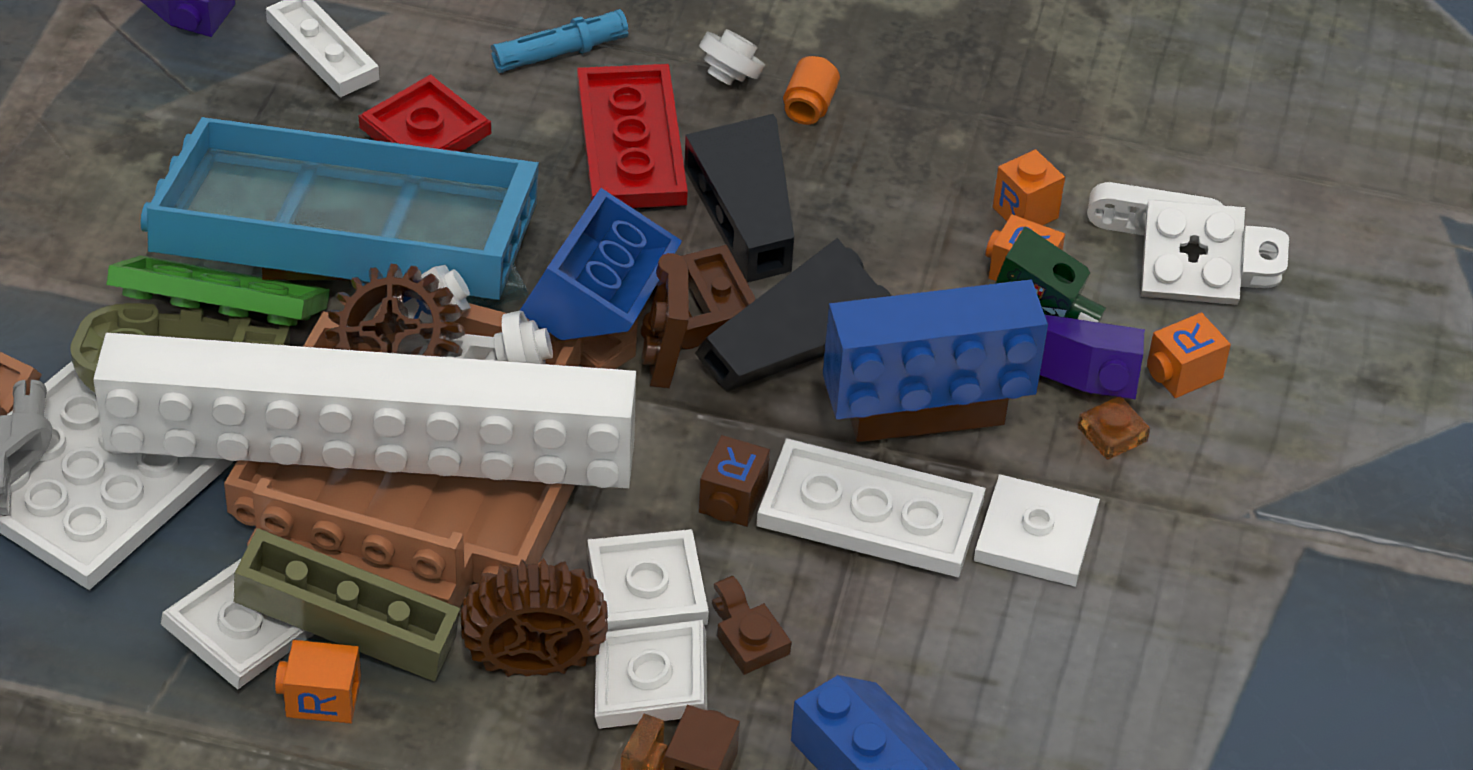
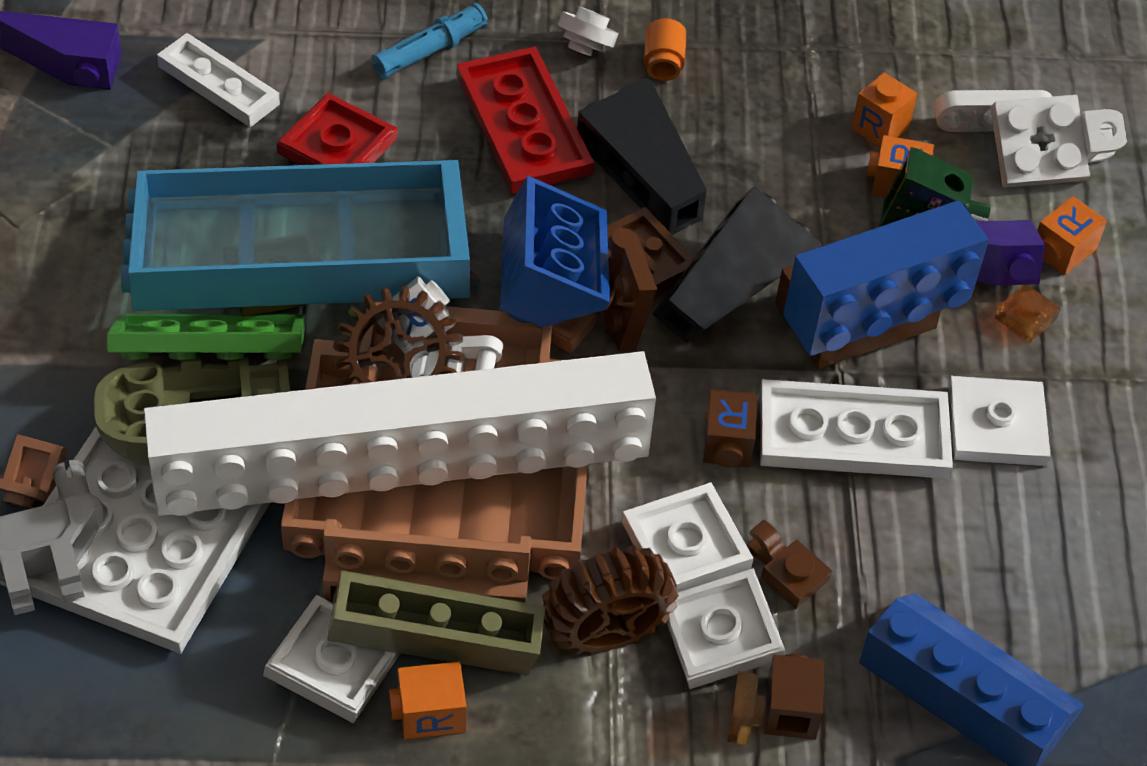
camera: 15 degrees left, 5 degrees up
(522, 340) = (514, 341): white plate -> none

